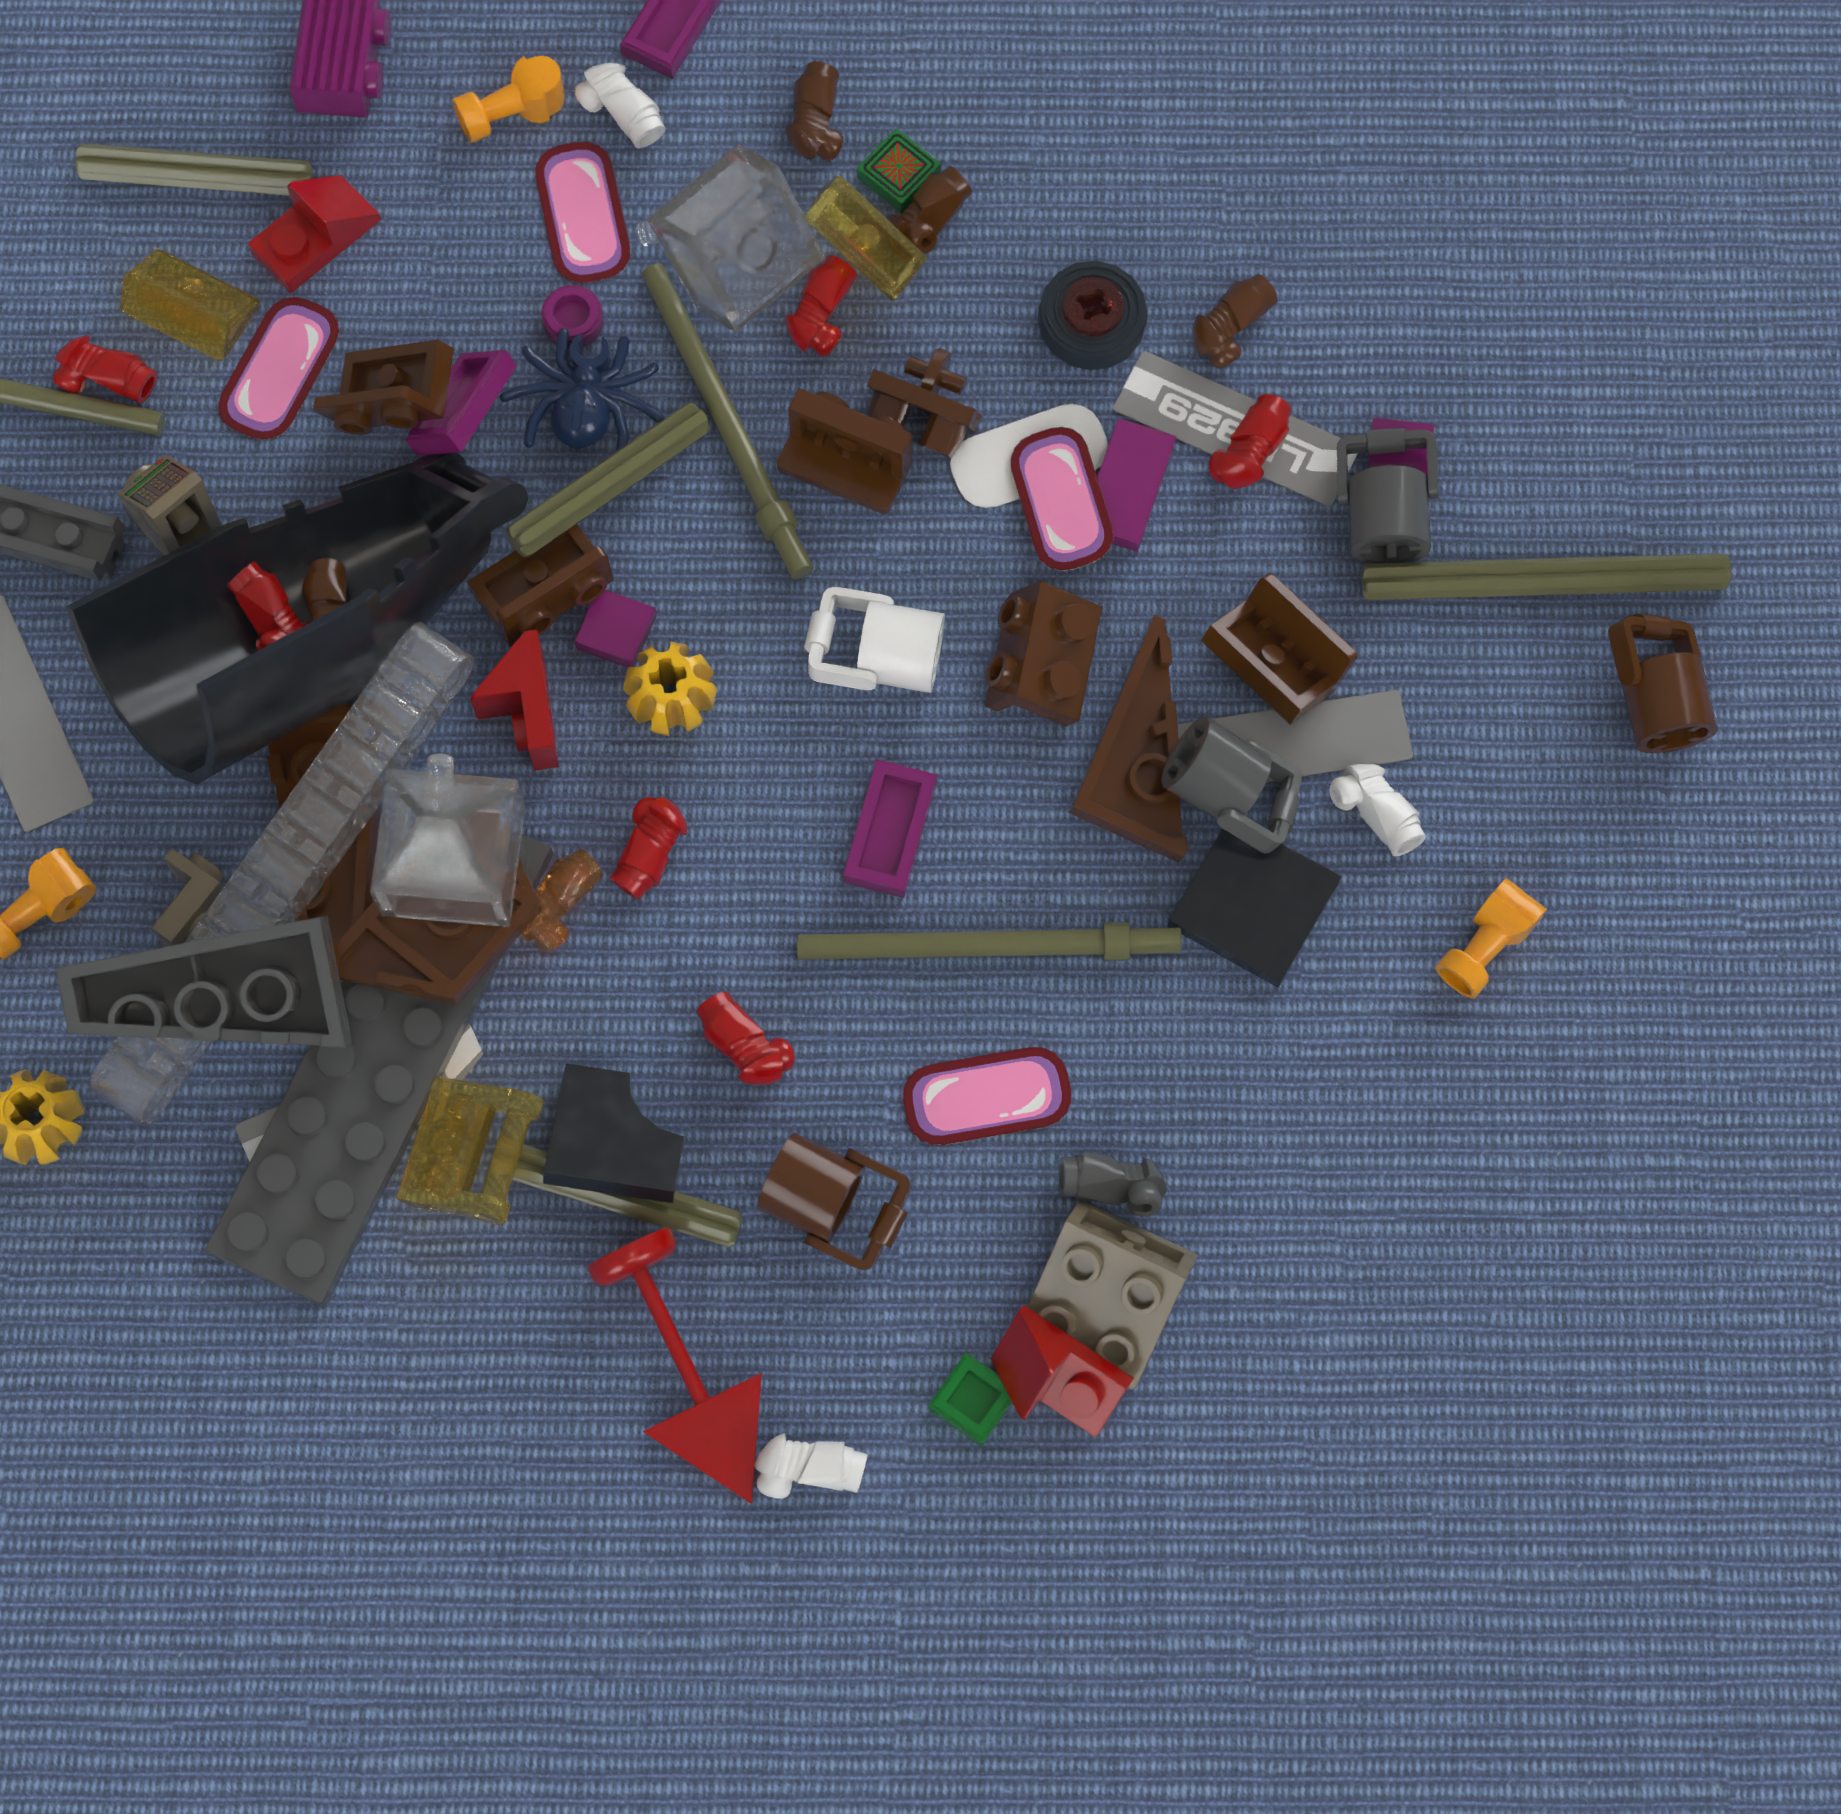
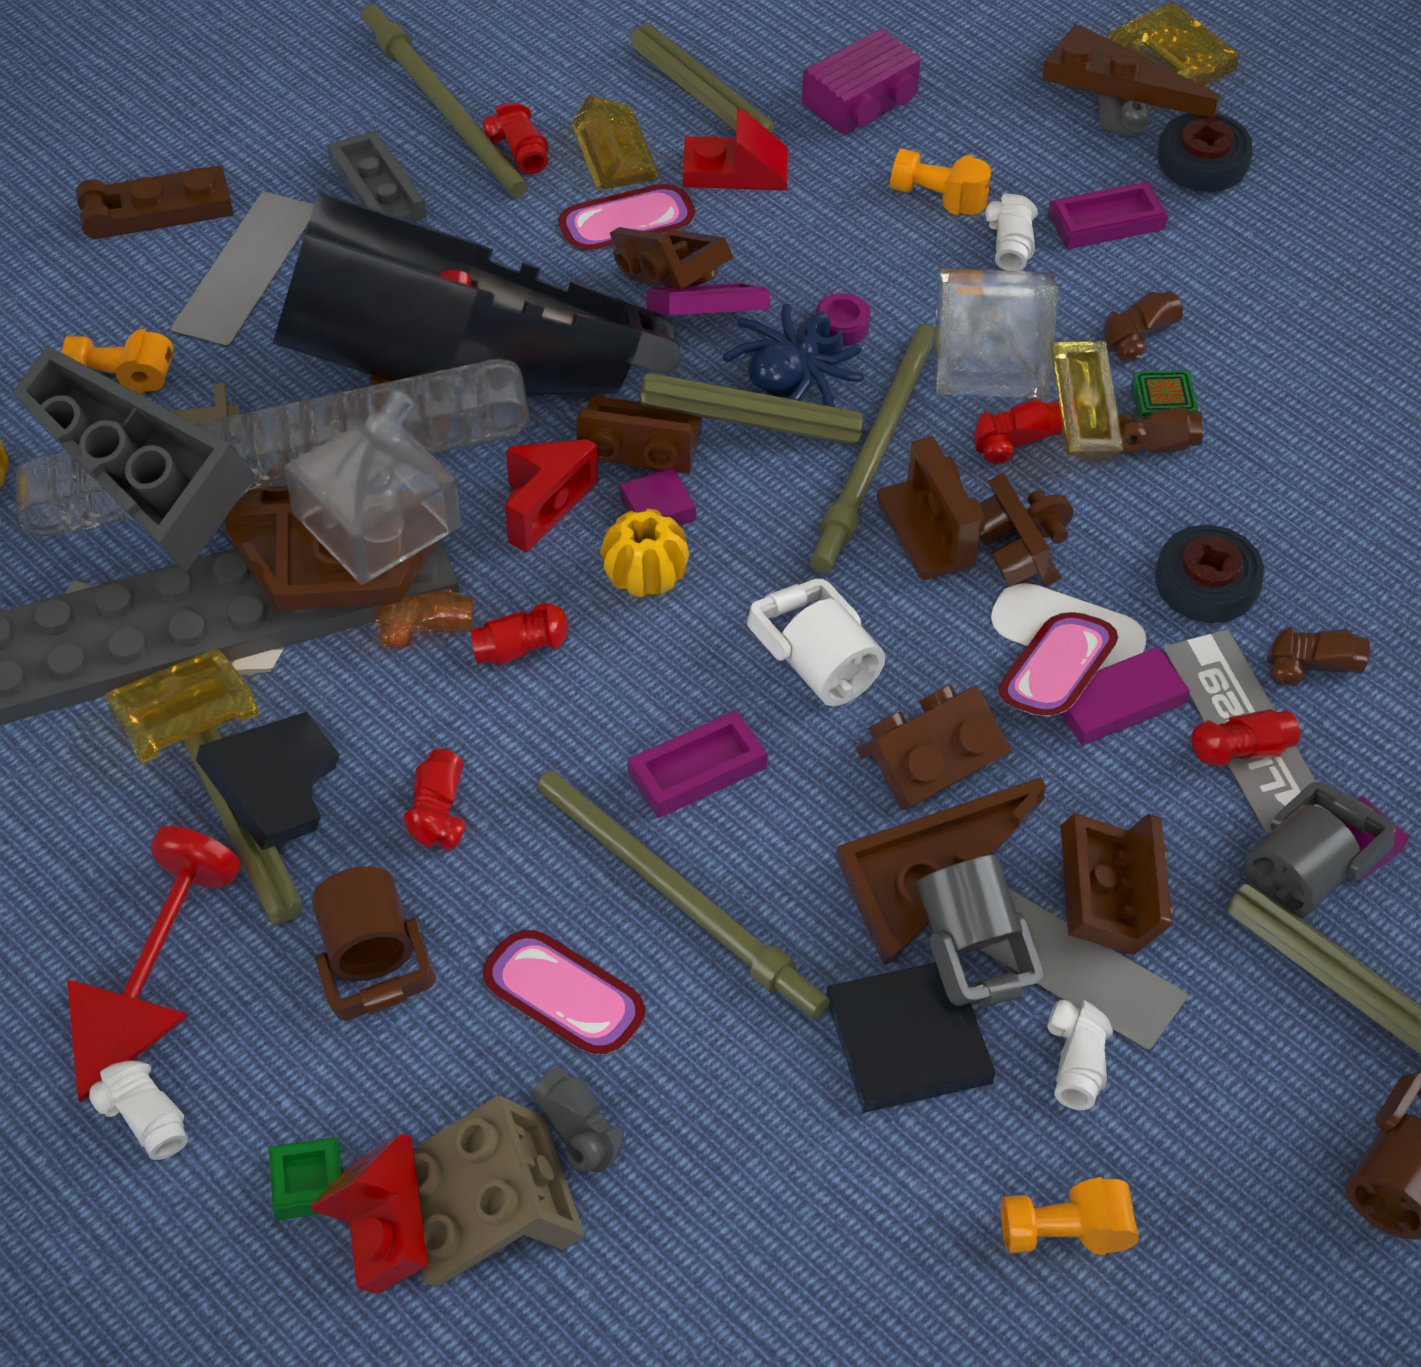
camera: 45 degrees right, 20 degrees down
(169, 504) = (461, 210): dark tan slope -> none
(582, 212) = (909, 282): sticker -> none

